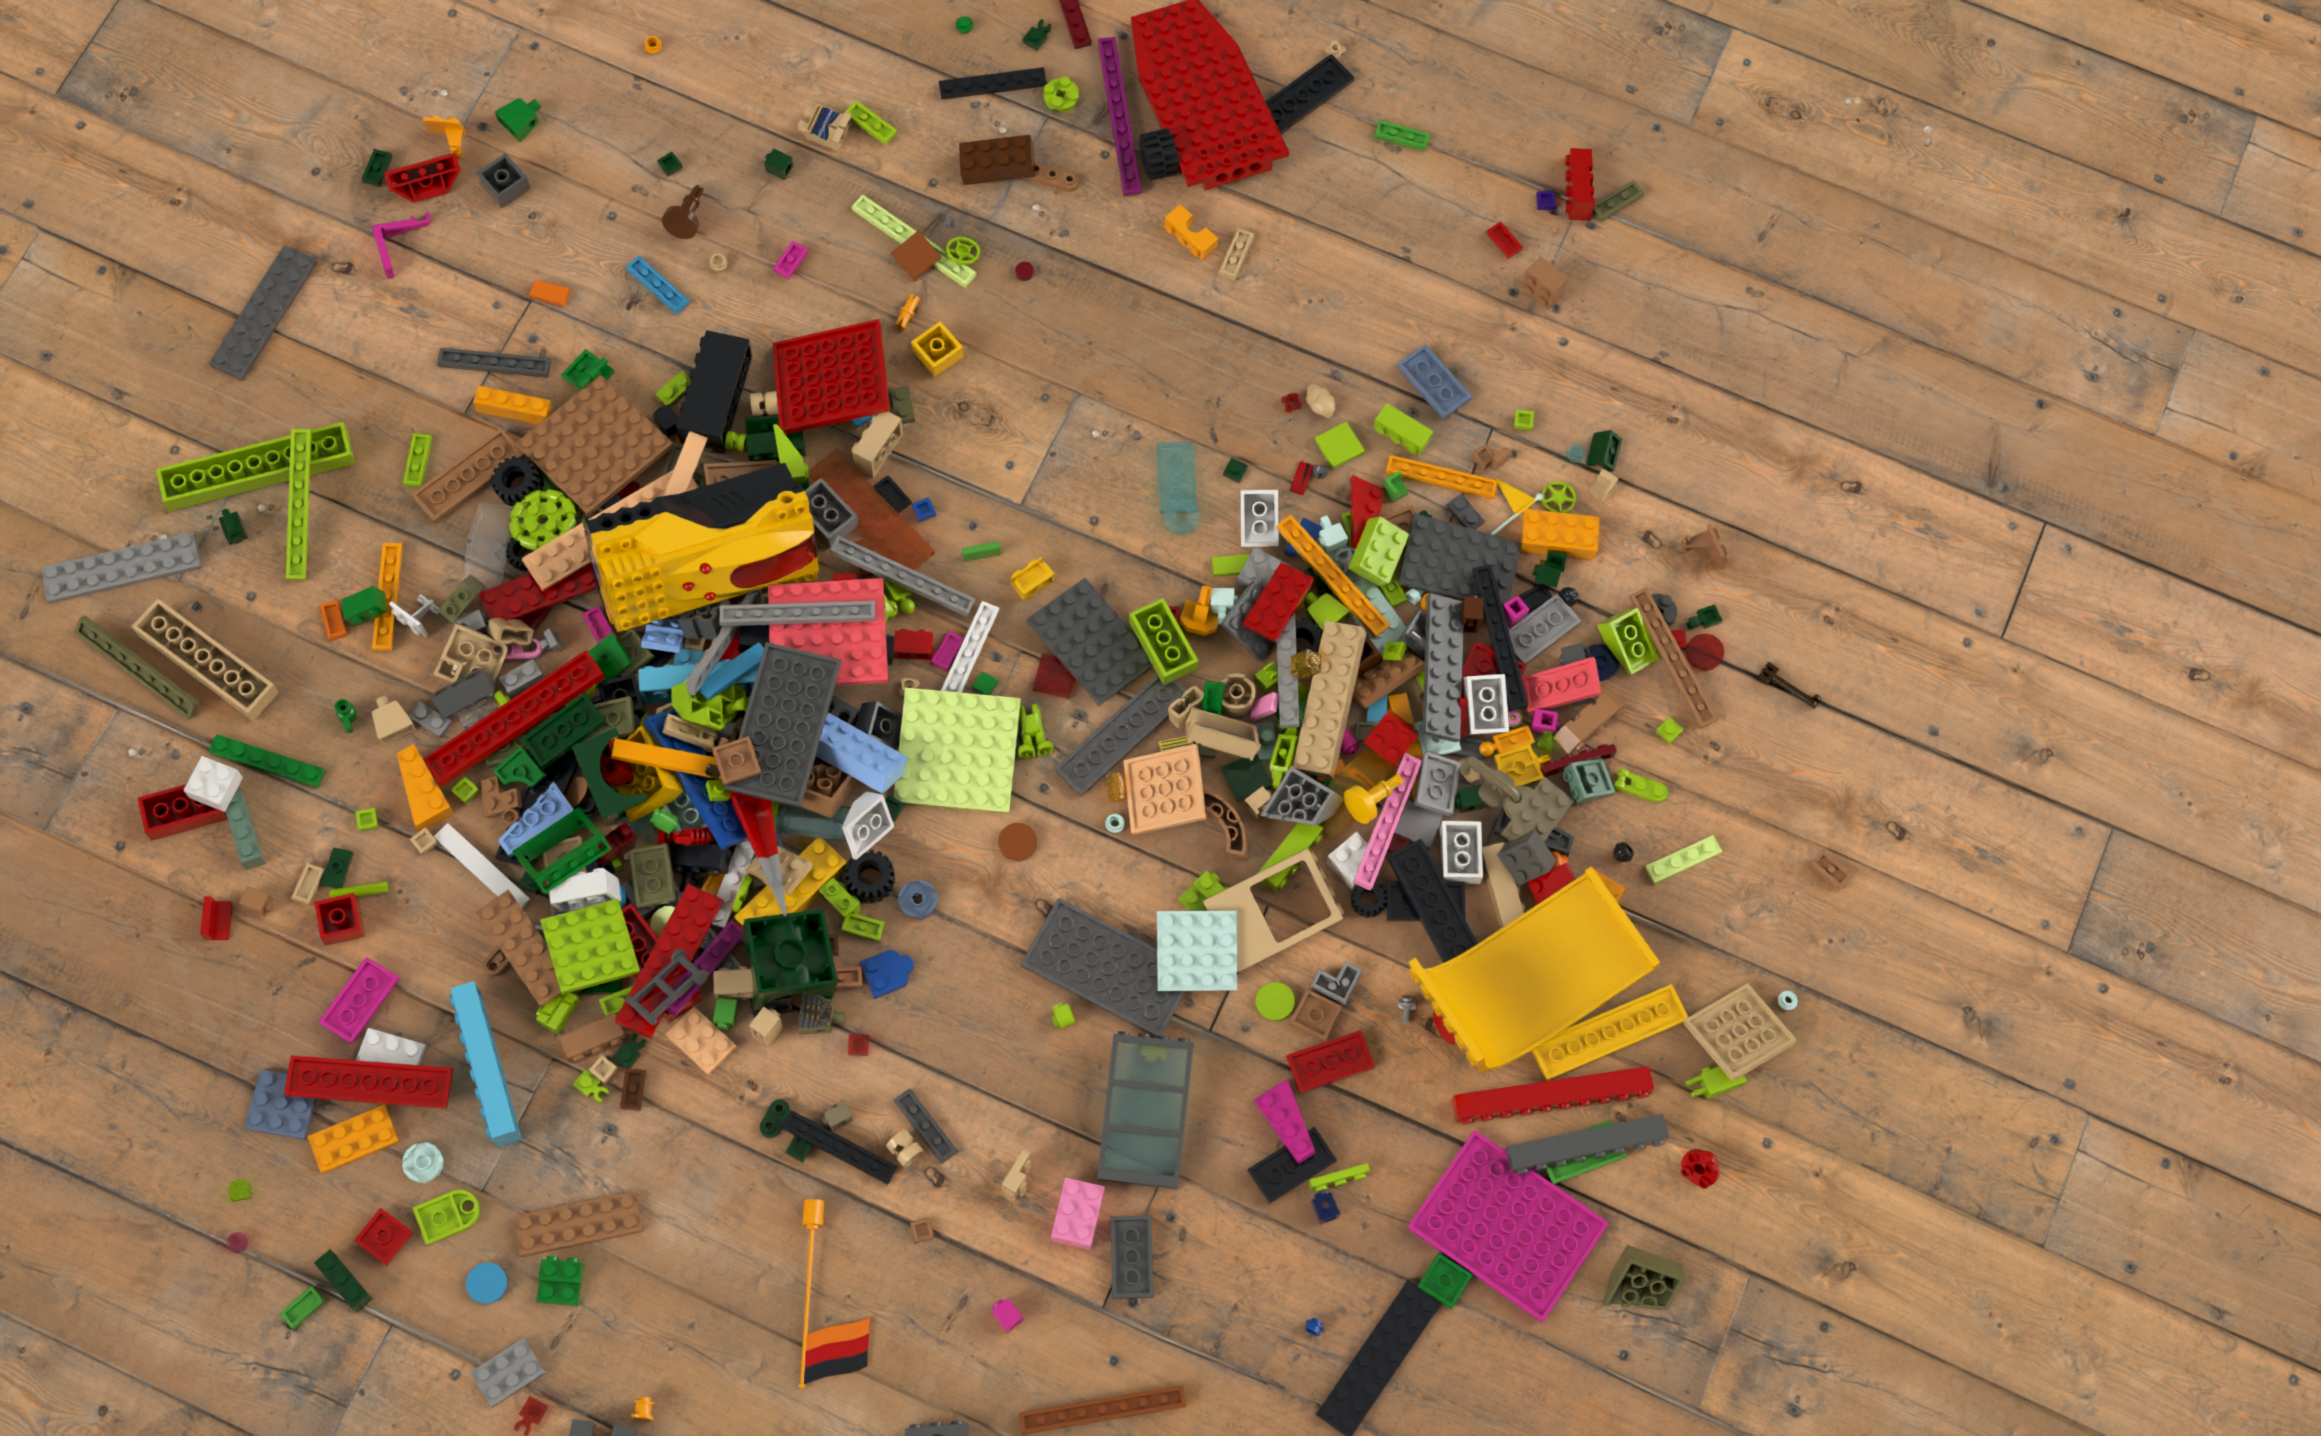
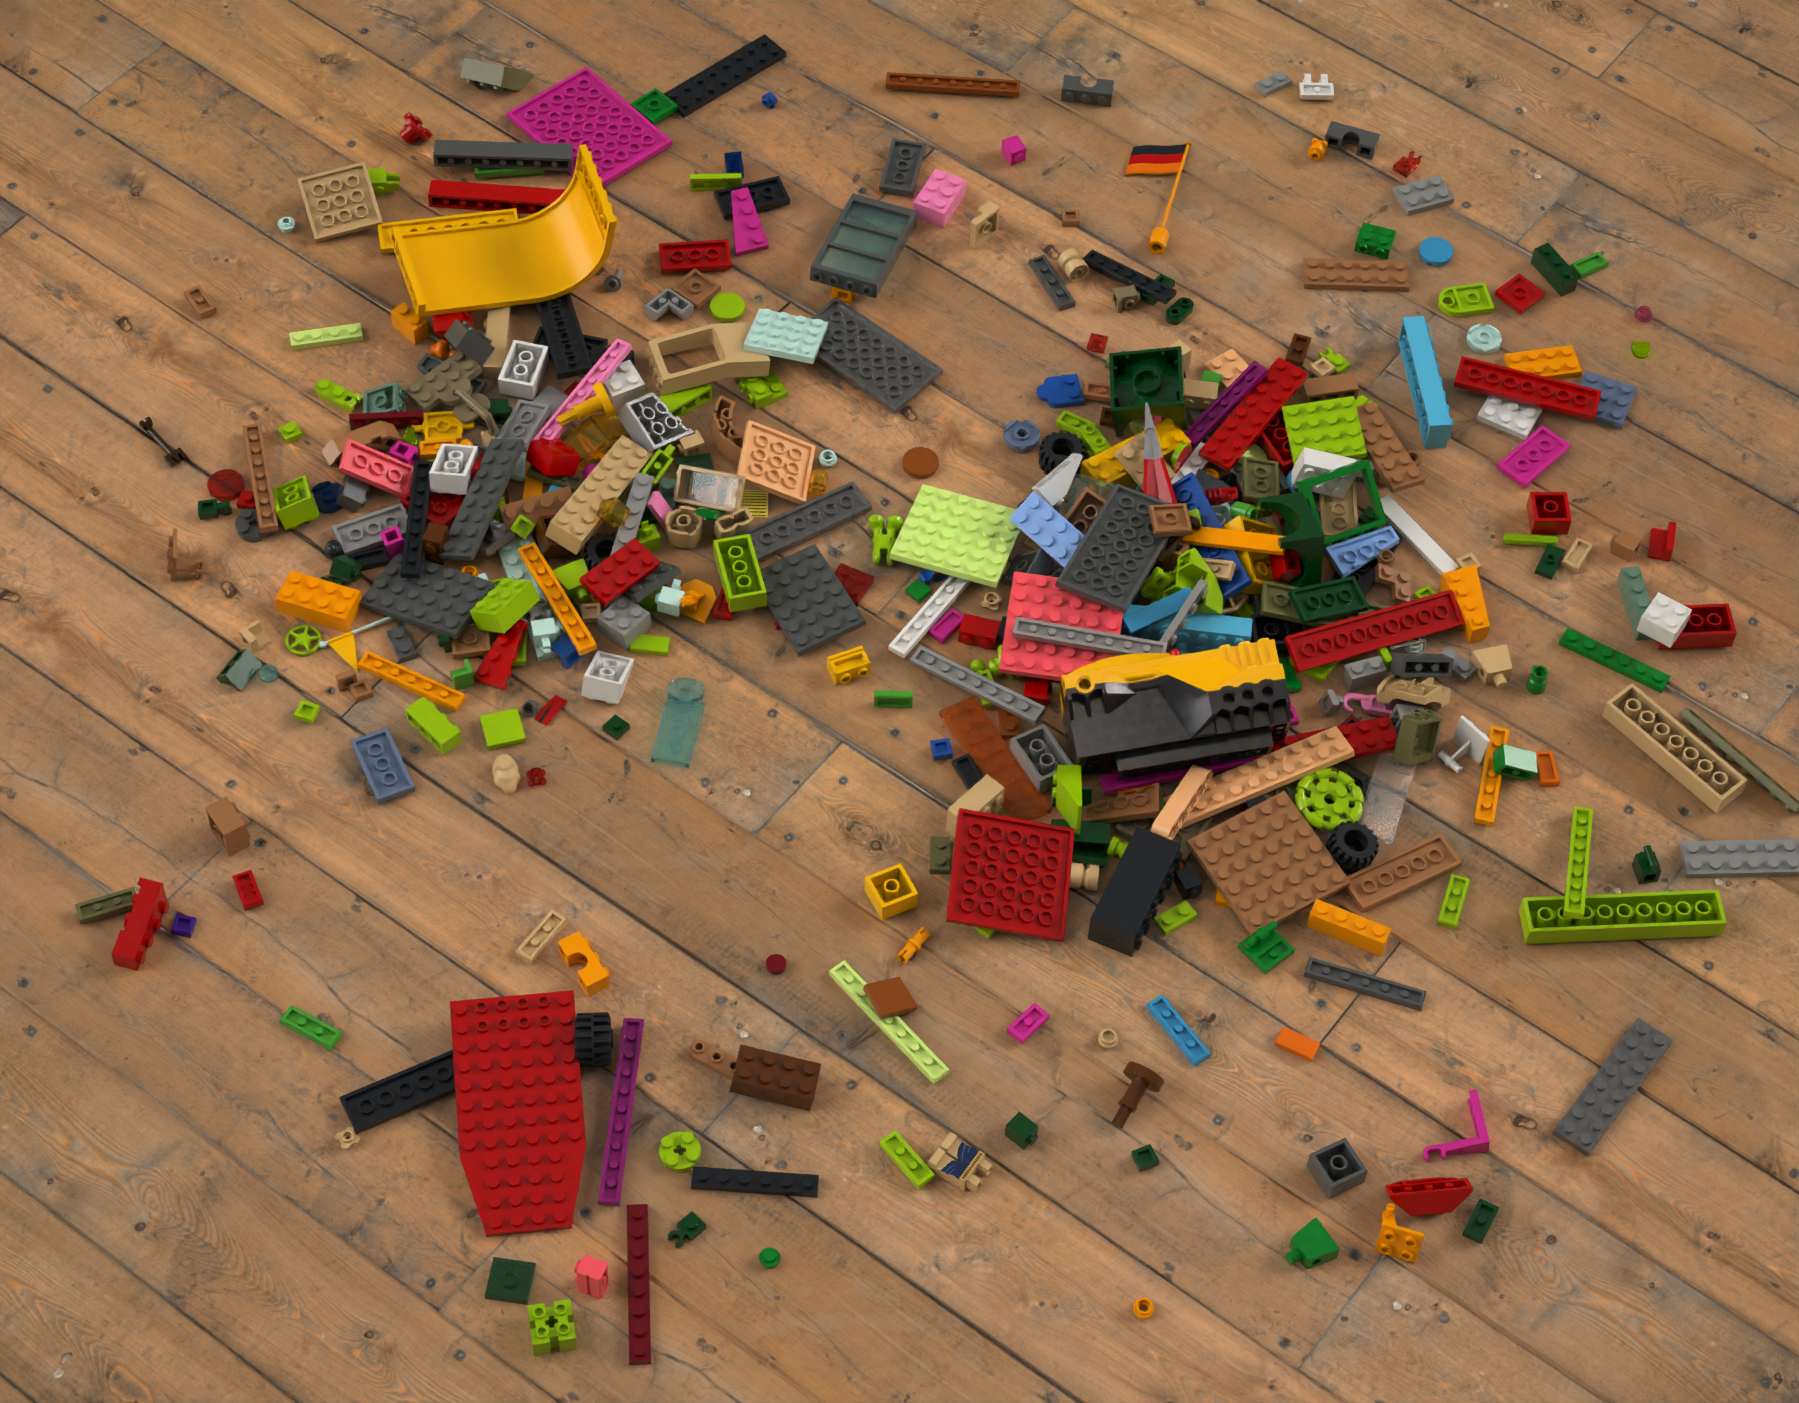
camera: 165 degrees left, 15 degrees down
(367, 819) = (1520, 591): lime plate -> none
(510, 631) = (1372, 703): tan brick -> none
(520, 767) = (1377, 595): green tile -> none
(677, 958) = (1231, 378): dark grey piece -> none
(962, 251) = (838, 995): lime wheel -> none
(1062, 1016) = (915, 328): lime plate -> none
(1623, 852) = (377, 347): black piece -> none

